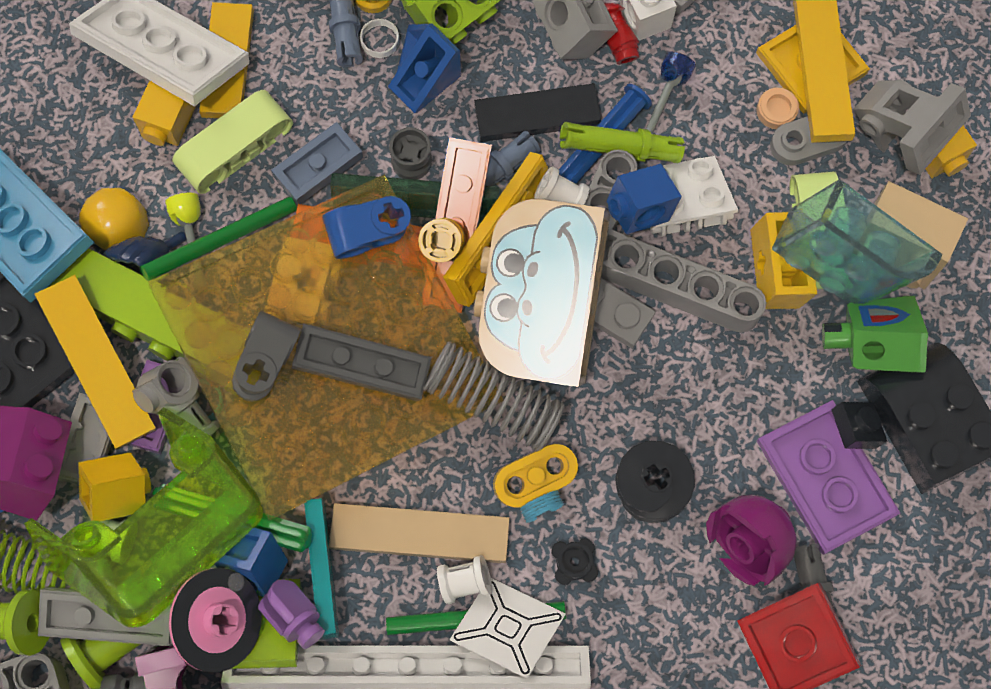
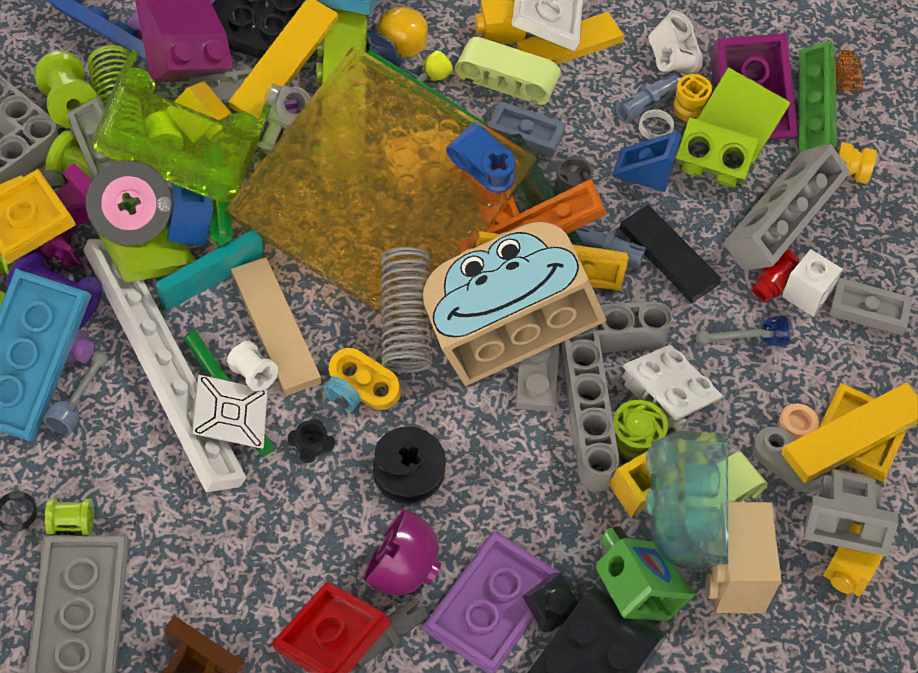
camera: 60 degrees right, 15 degrees down
(266, 351) = (344, 136): dark grey piece -> none
(291, 613) = (161, 254): medium lavender arm -> none
(361, 362) = (377, 207): dark grey tile -> none
(448, 237) = (506, 212): yellow wheel -> none
(560, 189) = (606, 283): white bush -> none
(617, 118) = (684, 305): blue axle -> none
(639, 144) = (687, 327): lime pin -> none
(643, 198) = (633, 334): blue brick -> none
(722, 248) = (638, 427): none -> lime wheel

